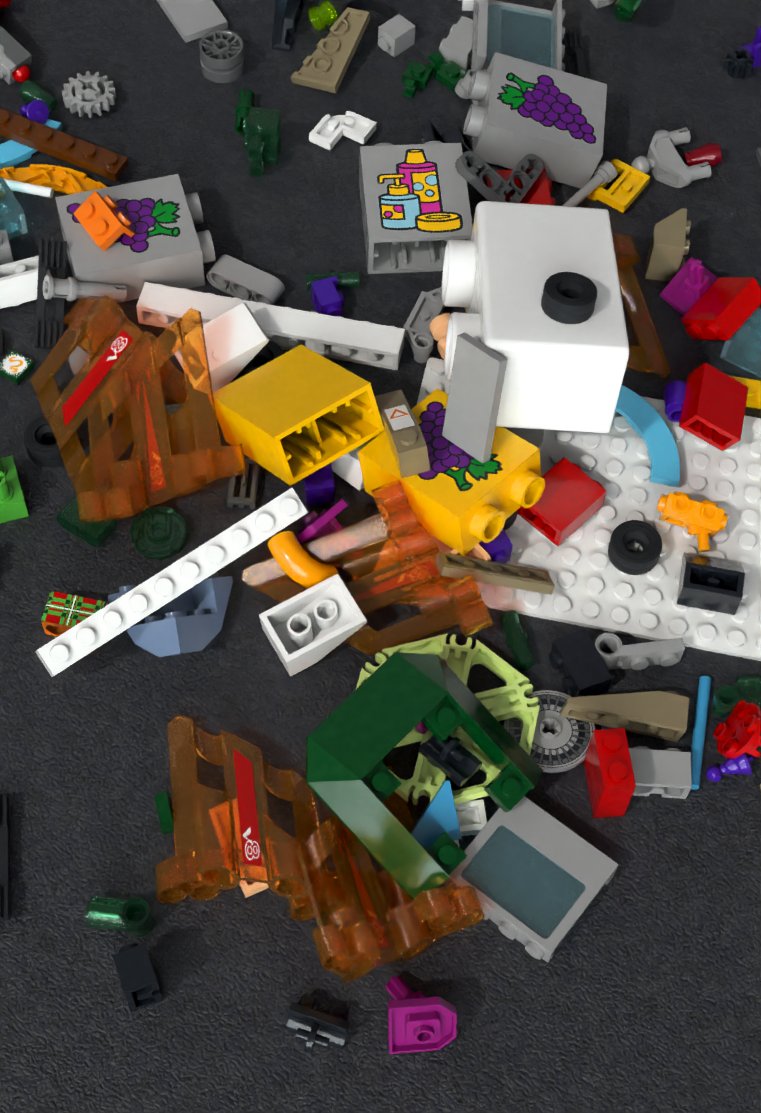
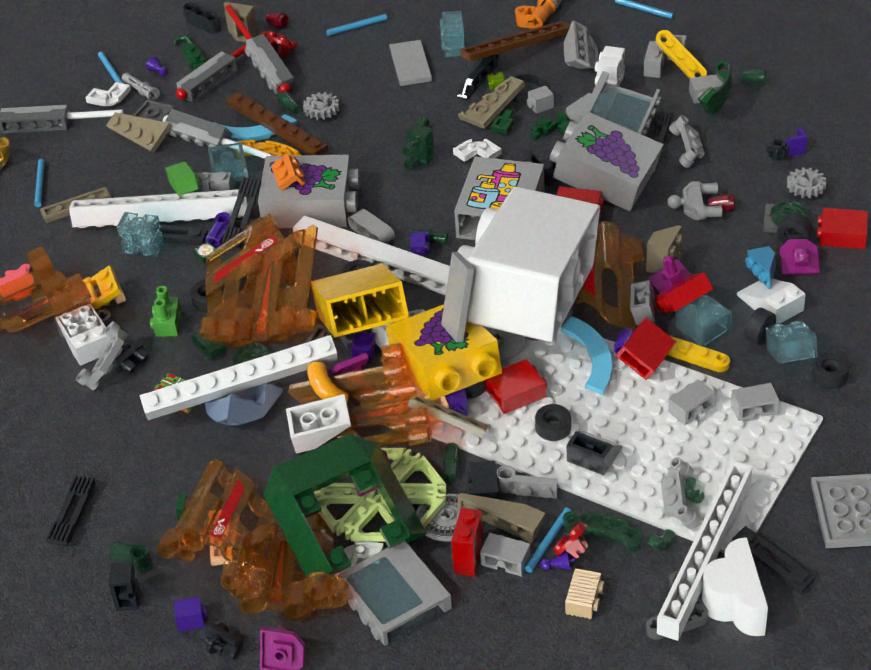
camera: 25 degrees right, 15 degrees down
(23, 326) = (217, 232): none -> dark purple piece
(35, 111) = (282, 110): dark purple piece -> none
(73, 289) = (254, 209): light grey pin -> none
(221, 56) = (416, 95): dark grey wheel -> none
(231, 344) = (335, 256): white slope -> none
(251, 992) = (190, 613): none -> dark purple brick
(360, 81) = (503, 123): none -> dark green plate
(403, 433) = (414, 319): dark tan slope -> none
(438, 818) = (348, 539): dark azure tile -> none
(451, 758) = (367, 509): black hips -> none
(500, 187) = (578, 188): dark grey beam -> none
(569, 297) = (533, 242): black tyre -> none
(604, 174) = (641, 201): light grey piece -> none
(622, 67) = (691, 141): none -> light grey plate
(624, 189) = (653, 211): yellow plate -> none
(672, 332) = (642, 302): none -> light grey brick
(700, 518) = (602, 411): light orange brick -> none

